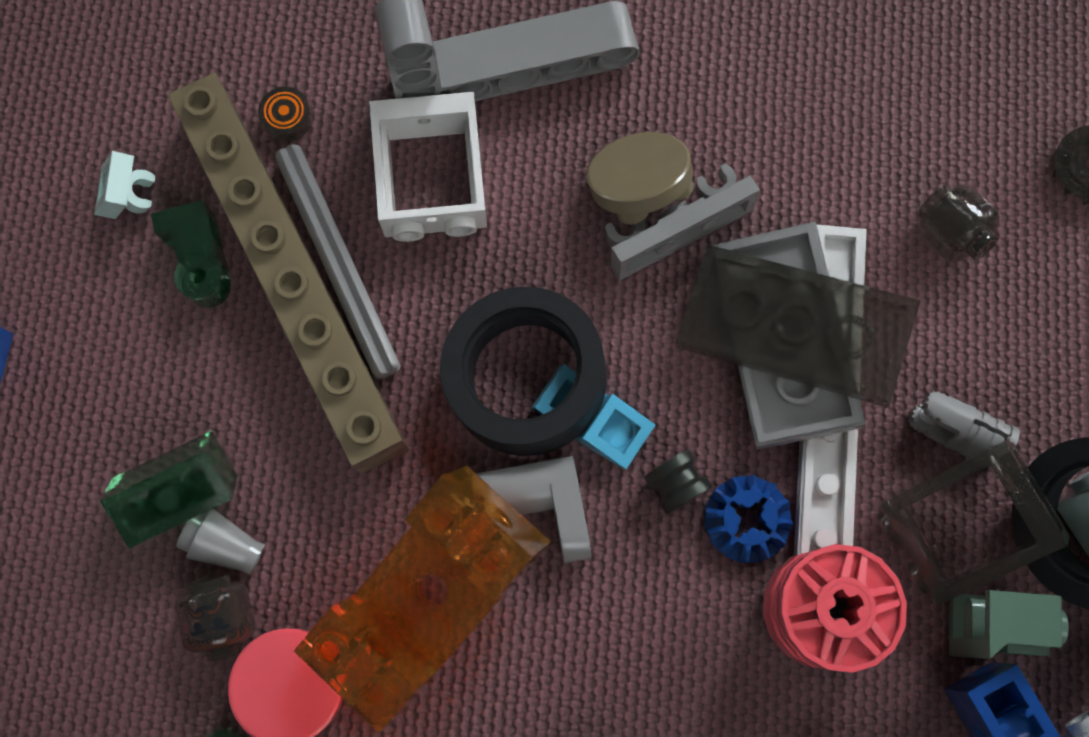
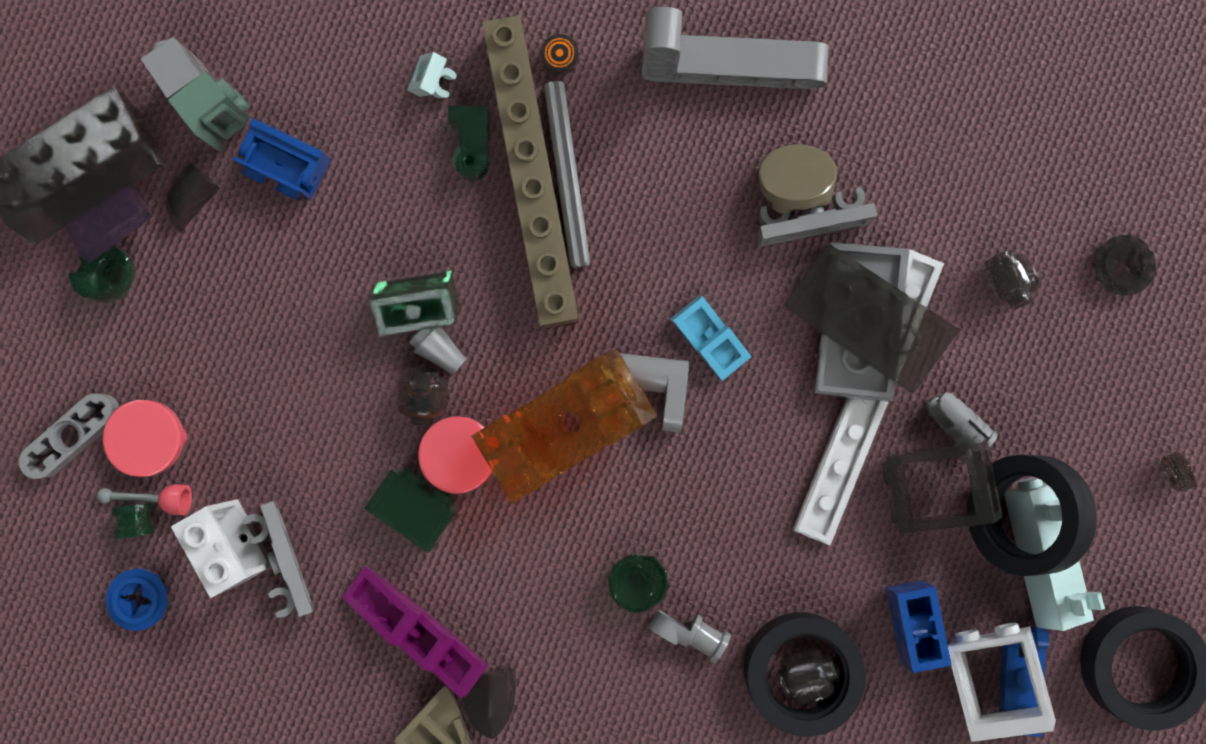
camera: 20 degrees right, 10 degrees up
(426, 118) = (658, 89): white window -> none
(505, 311) = (674, 247): black tyre -> none
(677, 481) = (754, 400): pearl dark grey wheel -> none
(752, 544) = (775, 436): blue gear -> none
(805, 591) = (811, 500): coral wheel -> none
(1005, 624) = (938, 560): sand green window -> none

